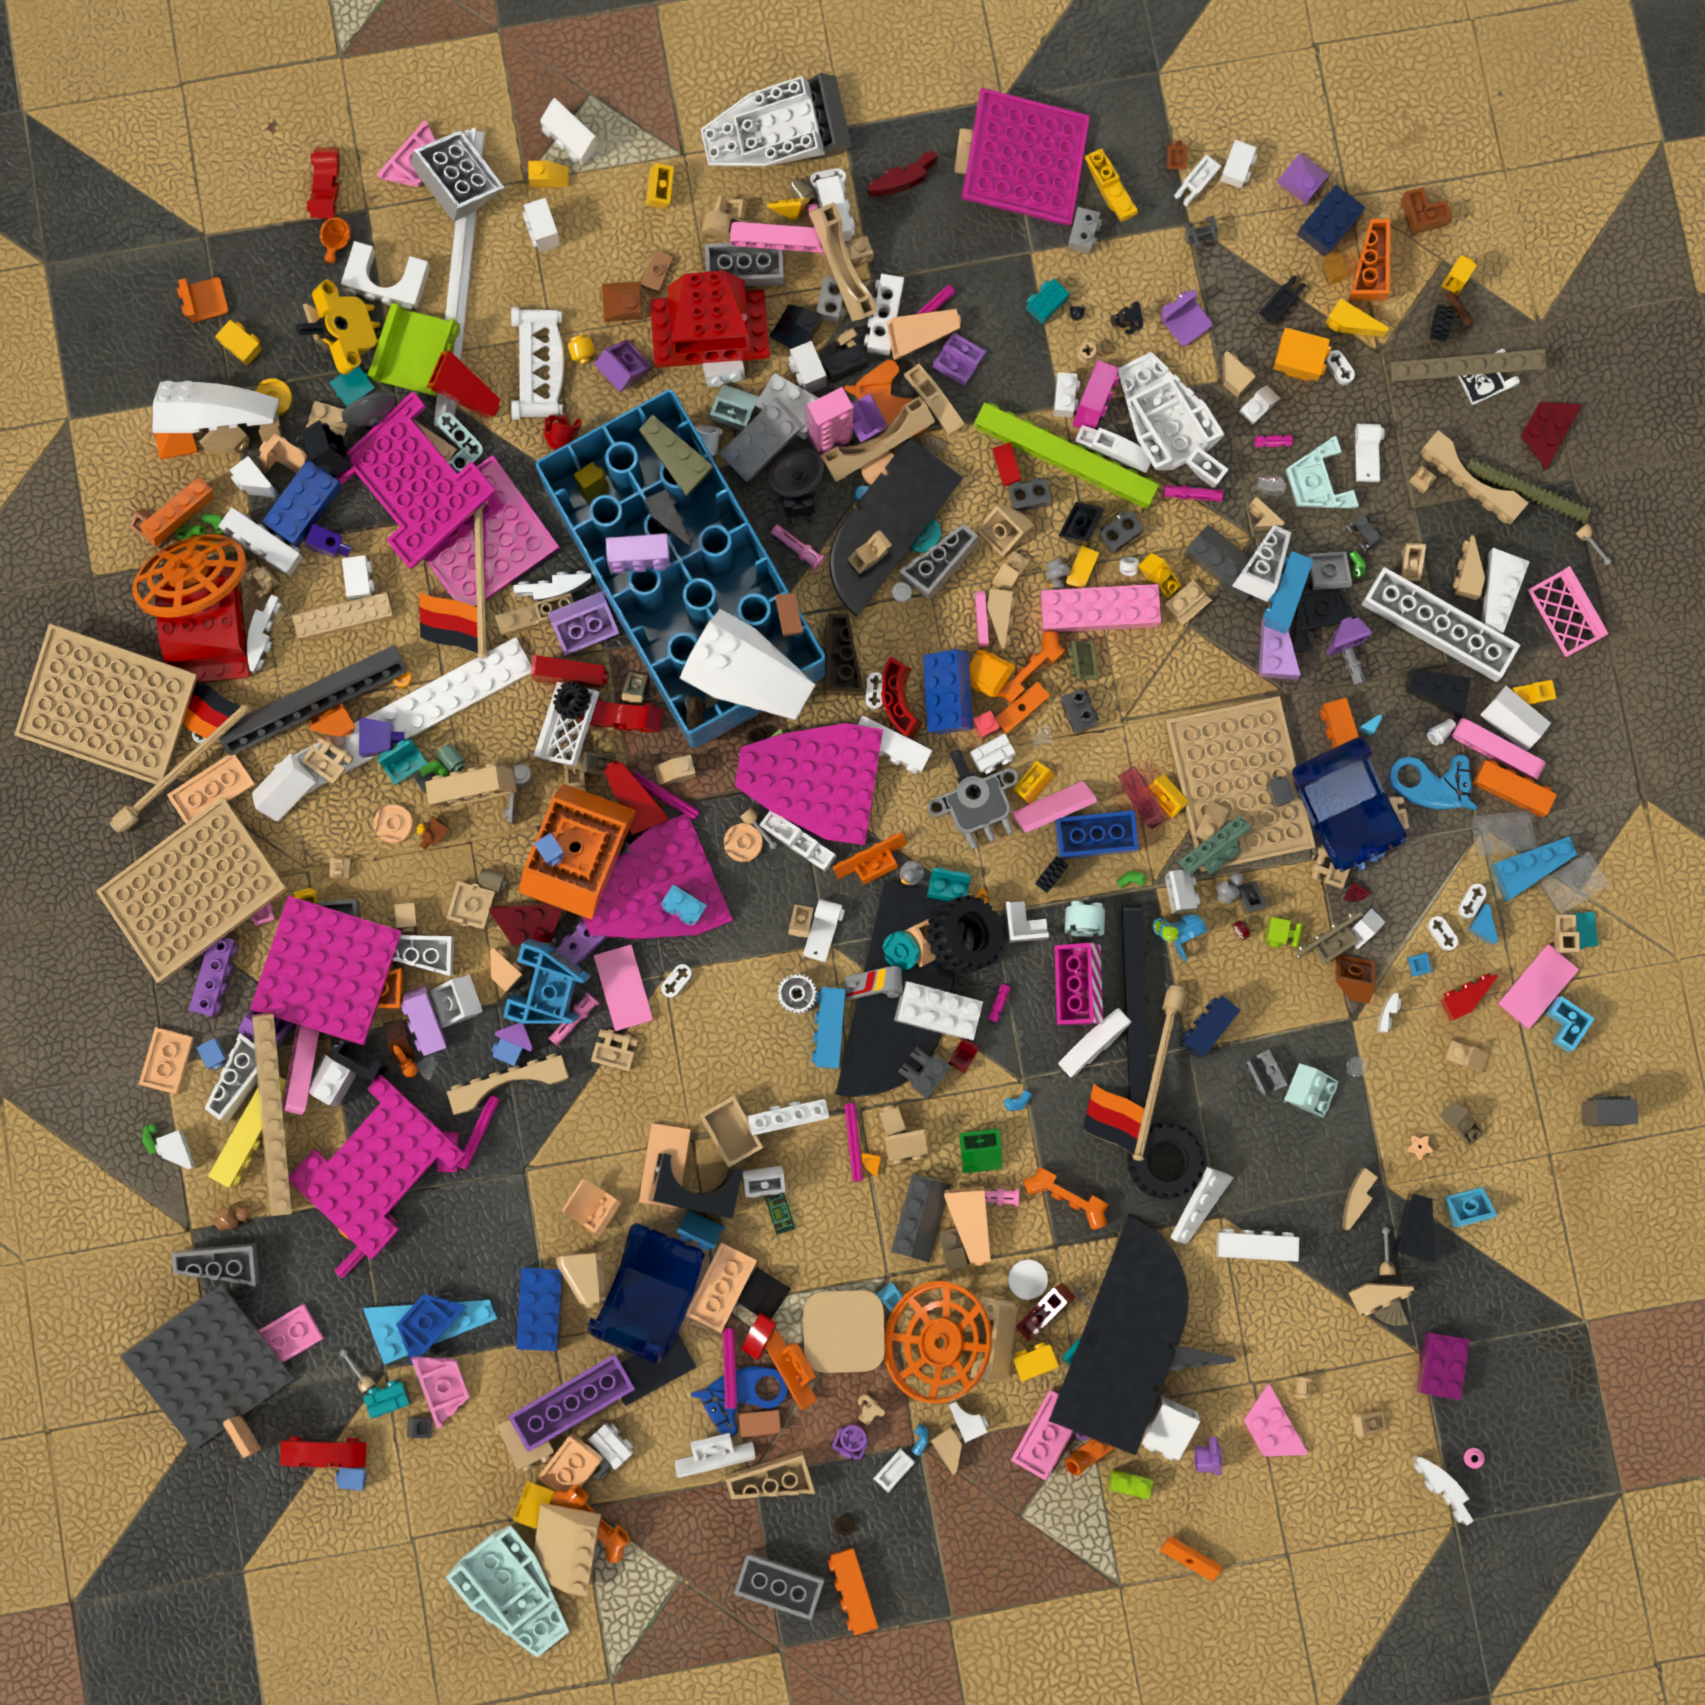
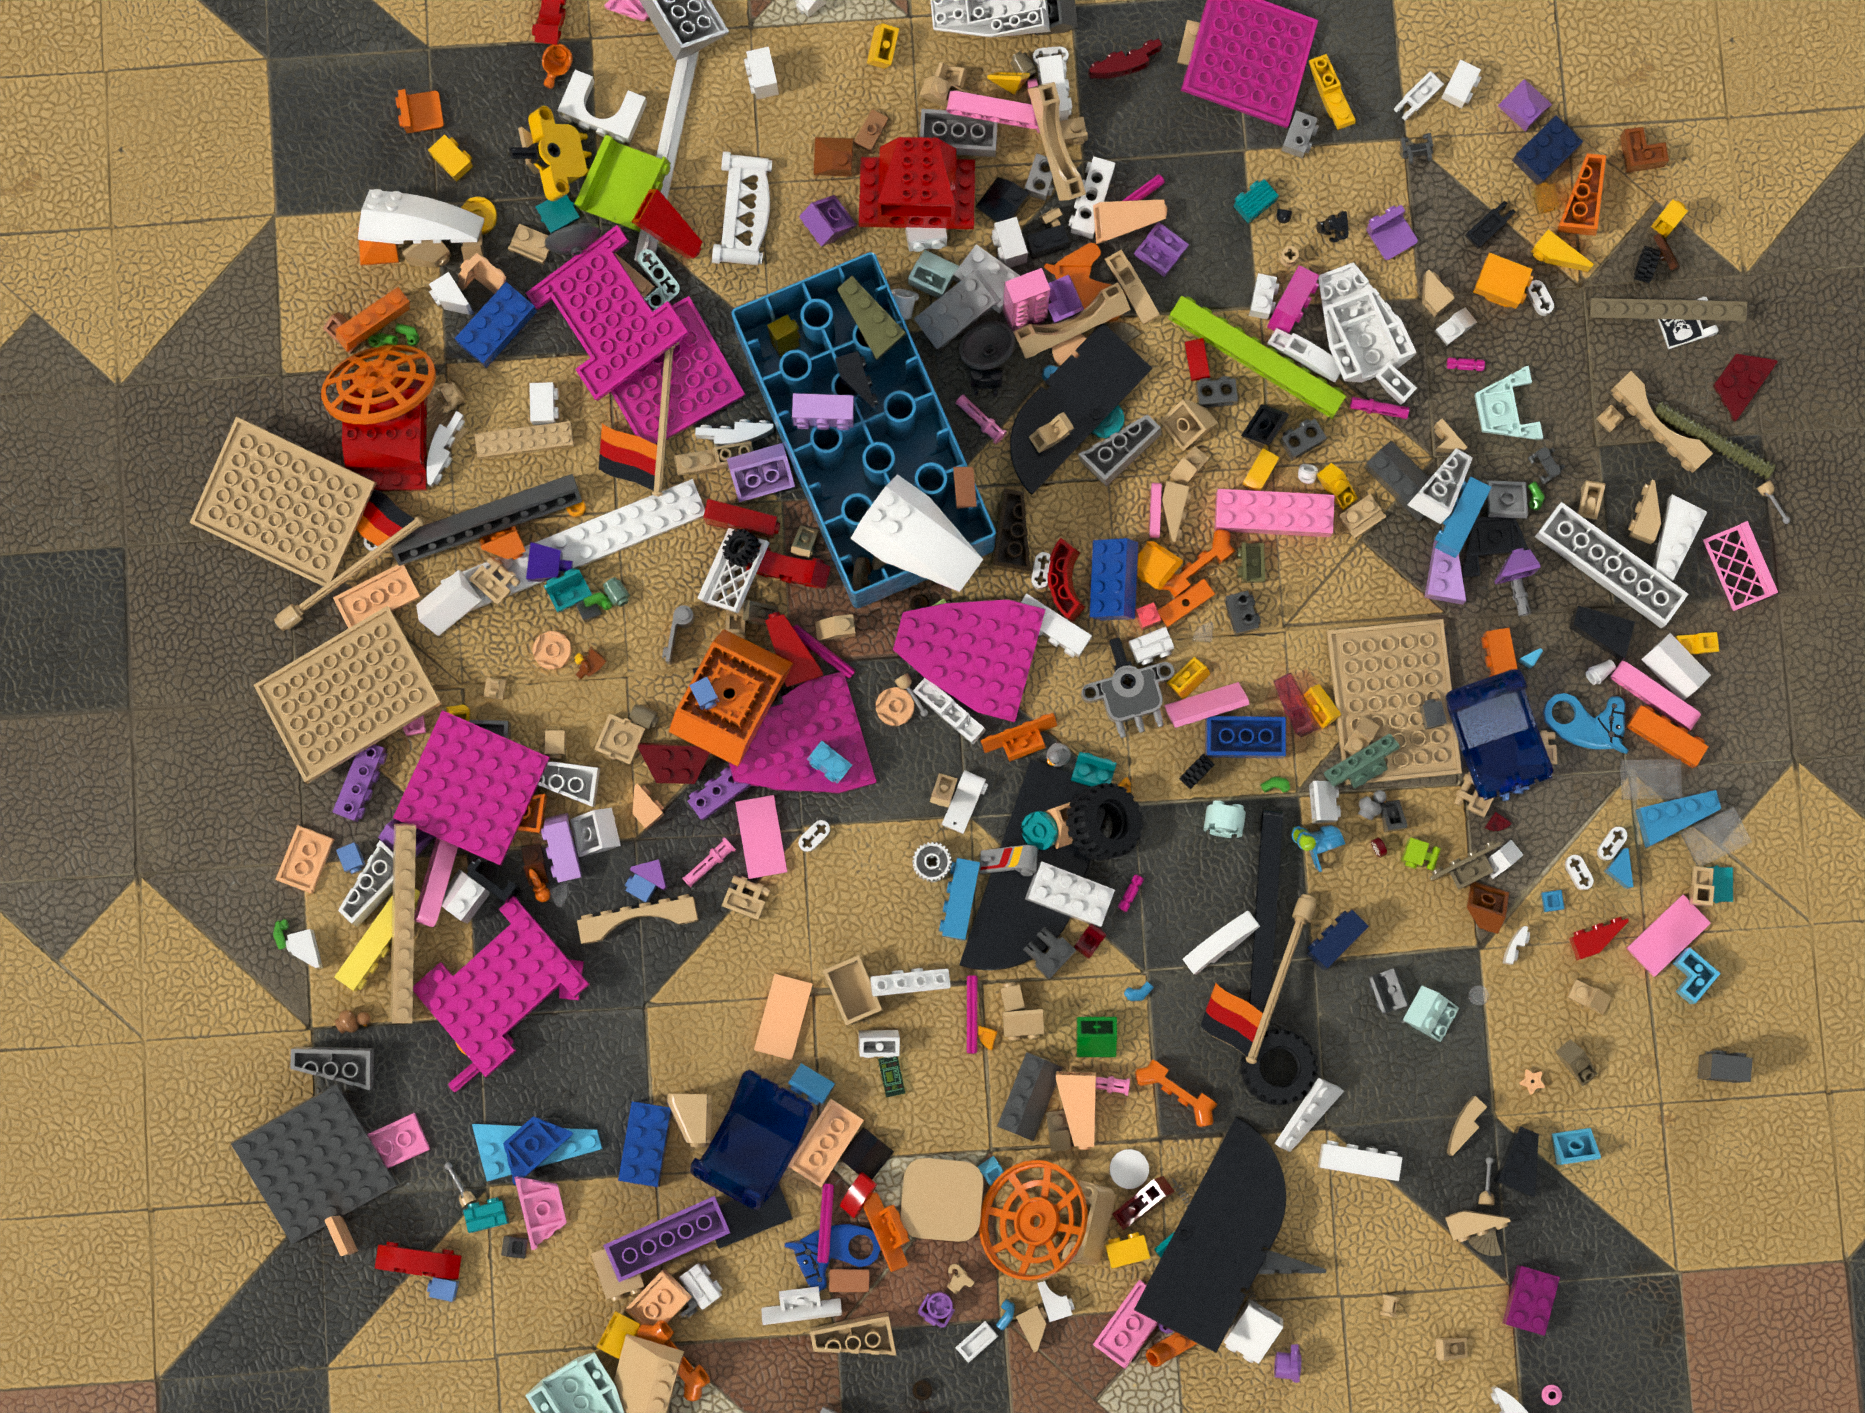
camera: 10 degrees right, 0 degrees up
(260, 541) = (451, 358): white wedge -> none
(320, 537) = (510, 359): dark purple torso -> none
(326, 448) = (526, 272): black container -> none
(470, 786) = (632, 621): tan brick -> none
(479, 1131) = (604, 962): dark pink axle -> none
(548, 174) = (773, 22): yellow slope -> none
(550, 987) = (689, 830): dark azure wedge -> none
(560, 433) = (758, 283): red helmet -> none
(581, 348) = (788, 199): yellow head -> none
(591, 1207) = (706, 1049): light nougat bracket -> none
(719, 1201) = (832, 1058): black piece -> none
(901, 592) = (1079, 475): white tile -> none
(1019, 928) = (1159, 822): white panel -> none
(1055, 570) = (1234, 470): light grey animal -> none
(1078, 984) = (1211, 883): dark pink brick -> none
(1130, 1484) = (1208, 1381): lime brick -> none
(1176, 155) = (1400, 68): dark orange bracket -> none
(1271, 485) = (1458, 408): clear brick -> none
(1272, 1427) = (1355, 1342): bright pink wing -> none
(1367, 452) = (1558, 385): white door -> none

